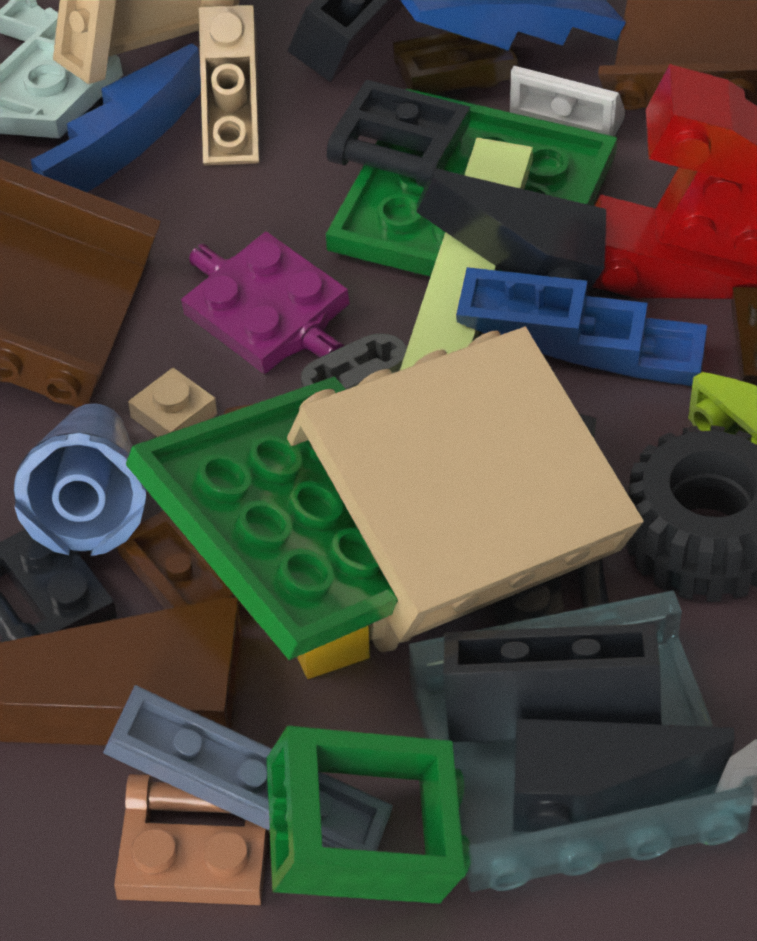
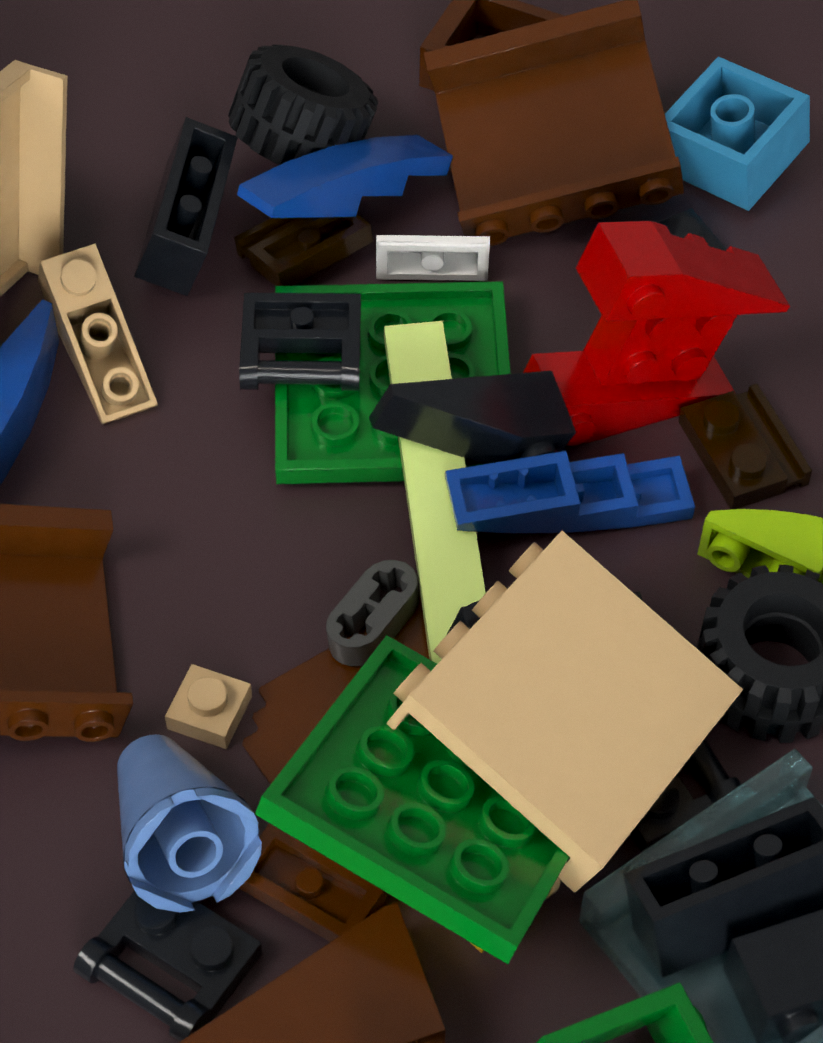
camera: 25 degrees left, 5 degrees up
(265, 302) = (245, 561): magenta plate -> none

